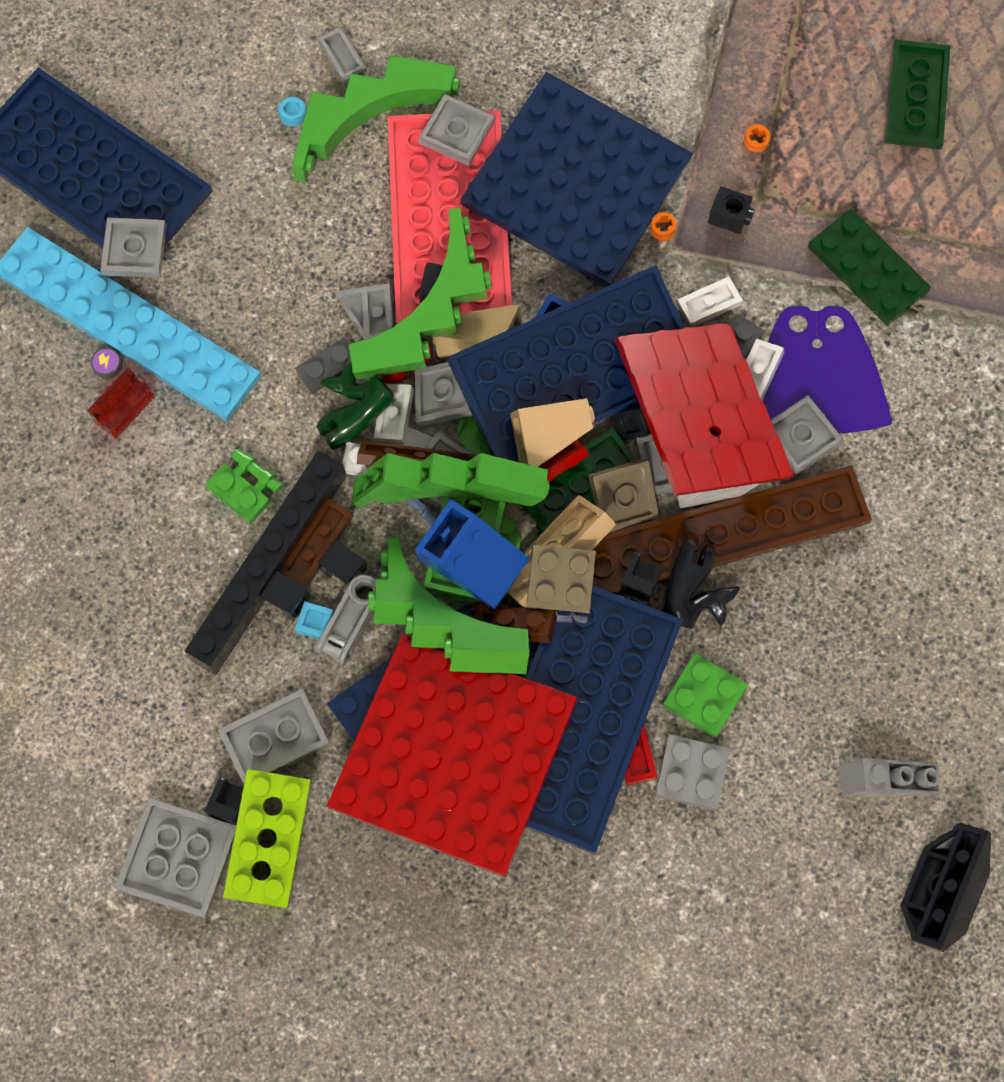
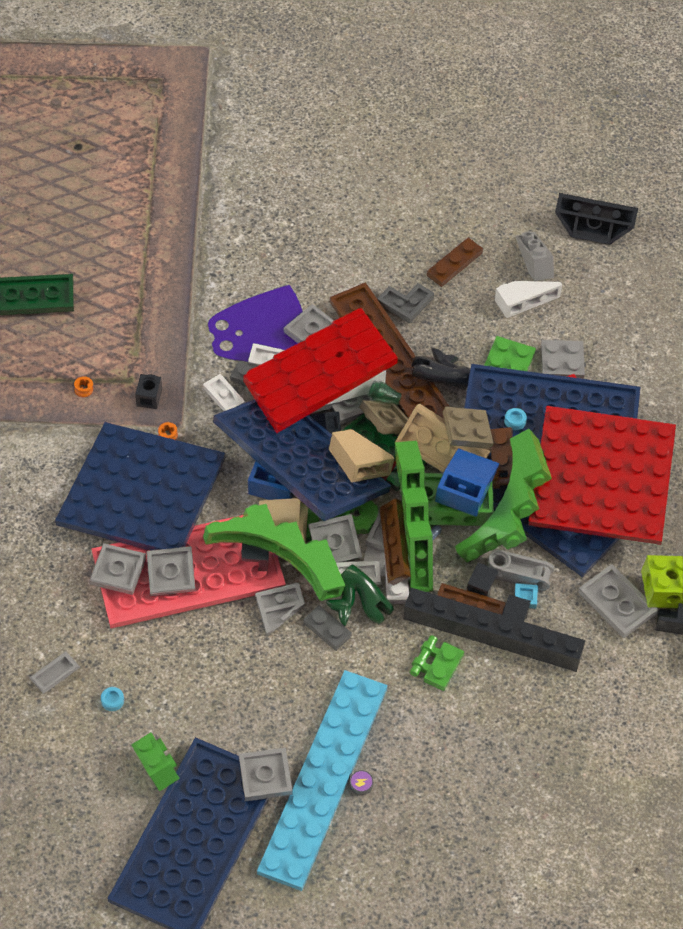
camera: 105 degrees left, 15 degrees down
(121, 403) = (394, 761): clear red hinge -> none
(185, 134) = (157, 764): none -> bright green brick
(334, 117) = (119, 664): bright green arch -> none
(438, 187) = (171, 571): none -> light grey plate
(569, 653) = (515, 418): none -> medium azure tile
(640, 579) = (442, 399): black panel -> none
(660, 497) = (382, 392): none -> clear green cone
(812, 734) = (524, 295): none -> white slope
(823, 573) = (406, 306): none -> dark grey plate
(869, 267) = (174, 309): dark green plate -> none
(898, 660) = (454, 262): none -> reddish brown plate

